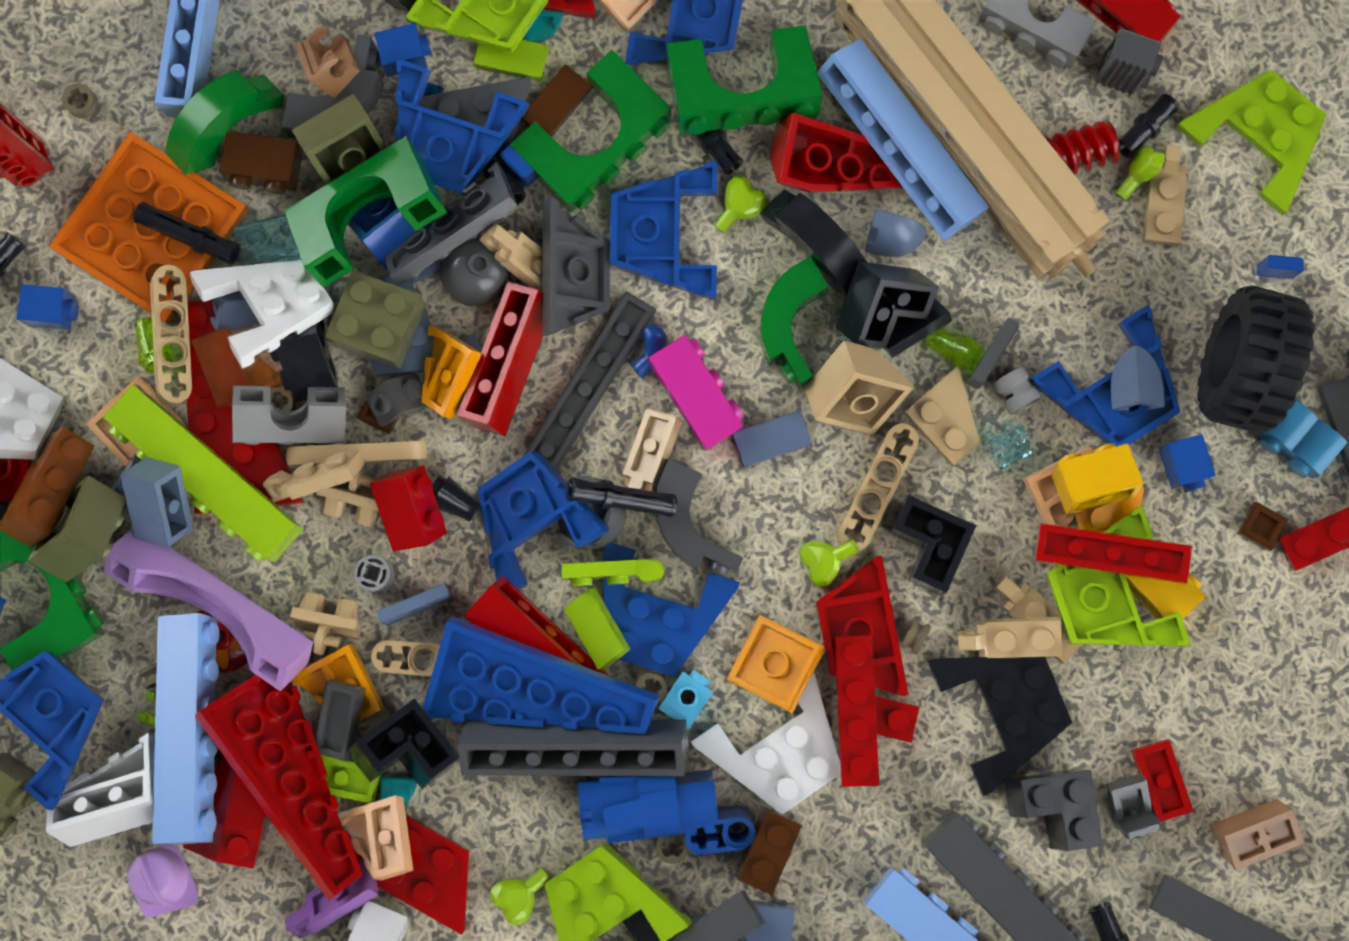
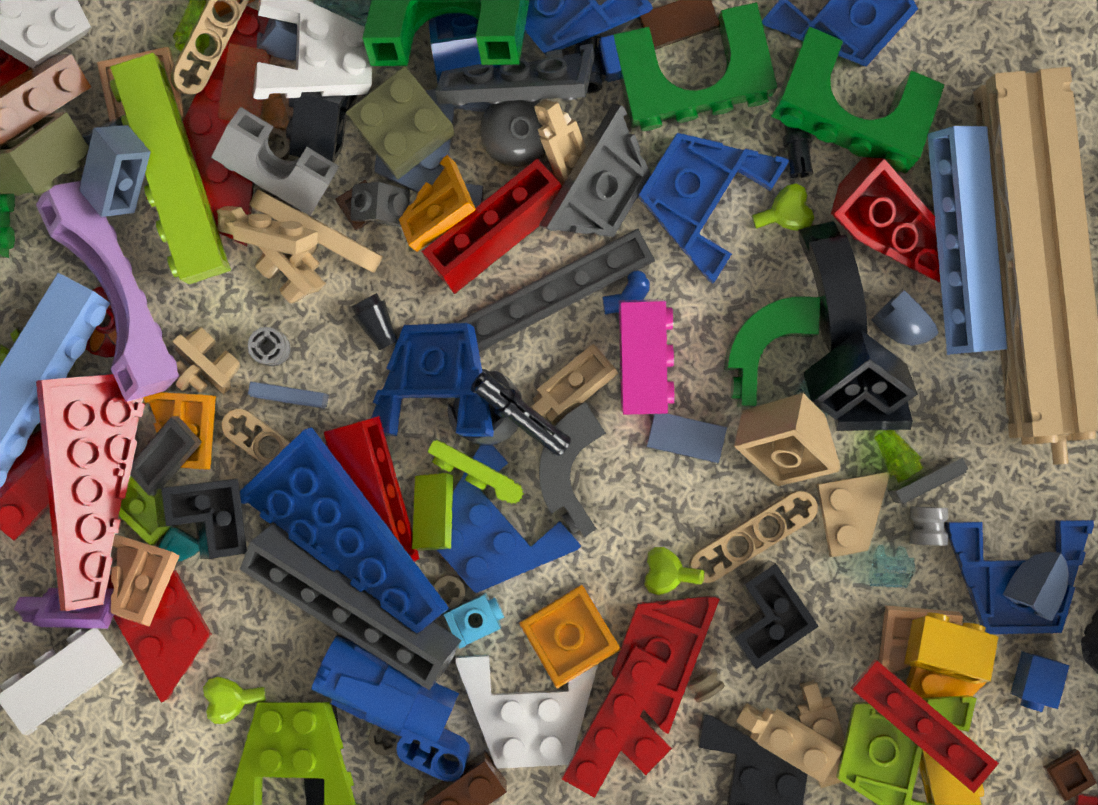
camera: 25 degrees right, 5 degrees up
(408, 508) = (331, 308): red brick -> none

